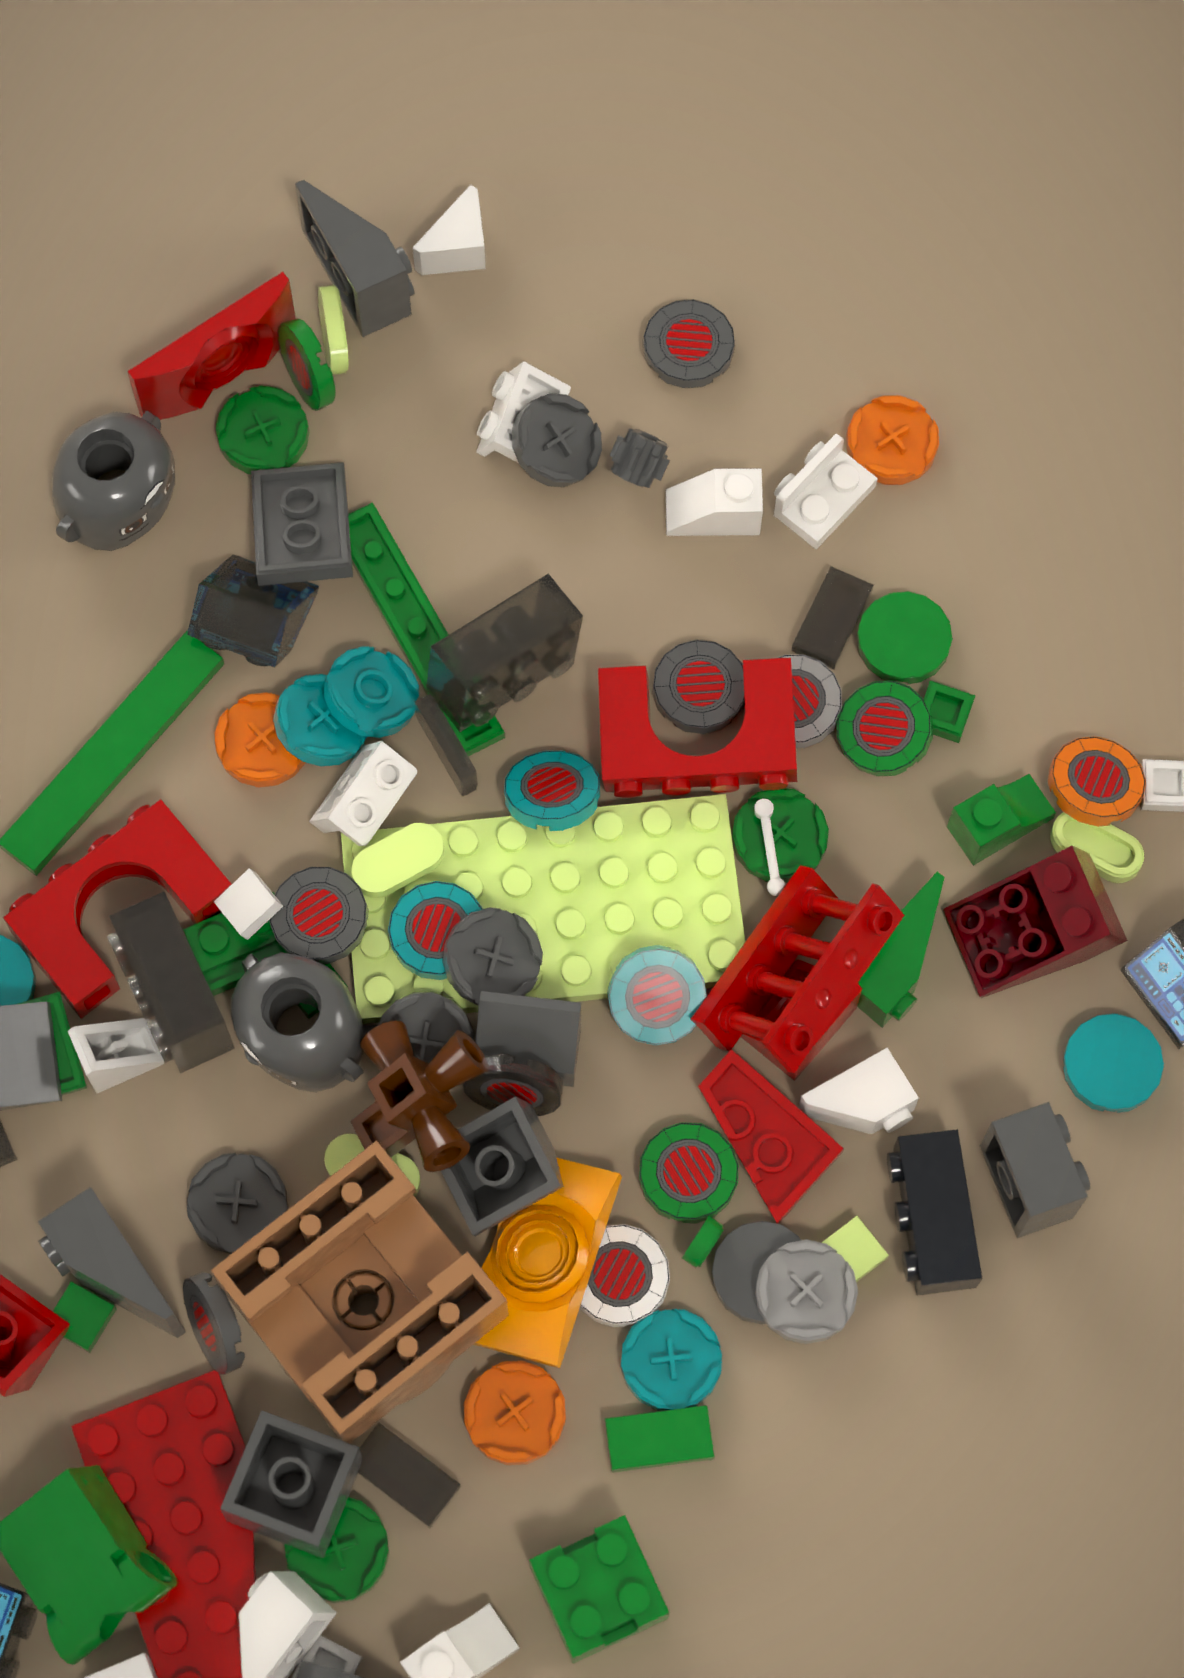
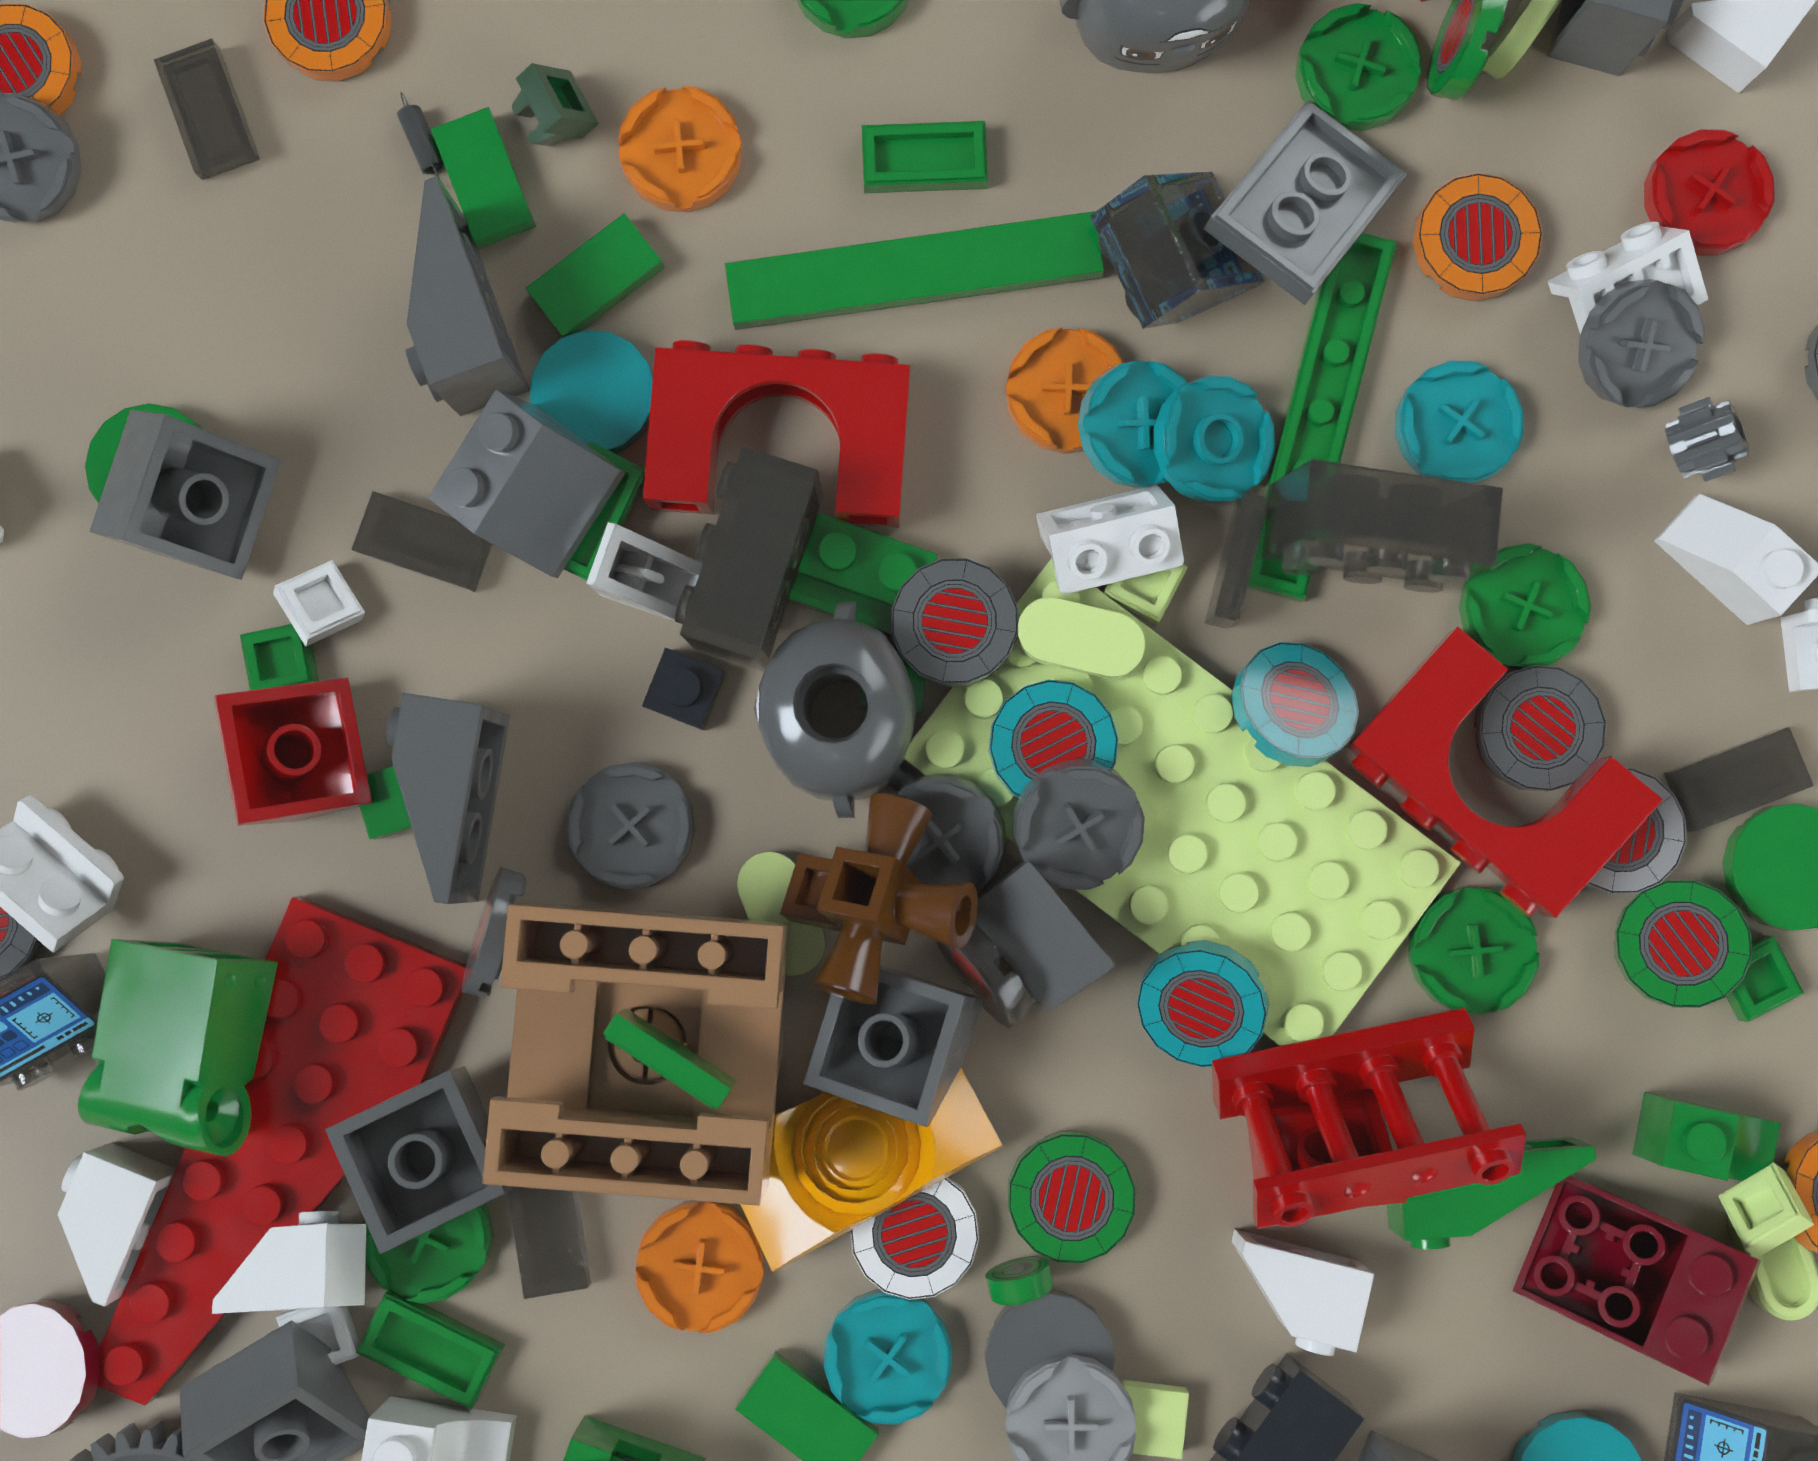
camera: 45 degrees right, 15 degrees up
(59, 686) = (924, 157): none -> green tile
(196, 1098) = (684, 689): none -> black plate
(248, 904) = (896, 550): white tile -> none
(381, 1280) = (669, 1058): none -> green tile
(400, 1612) = (430, 1349): none -> green tile
(412, 806) = (1147, 594): none -> yellowish green tile
(414, 462) = (1477, 236): none -> tile
(497, 563) = (1459, 422): none -> teal tile
(518, 330) = (1711, 189): none -> red tile
(629, 628) = (1526, 607): none -> green tile
(764, 810) = (1481, 915): white hinge -> none
(769, 1133) = (1180, 1239): red wing -> none
(1059, 821) = (1765, 1210): none -> yellowish green tile

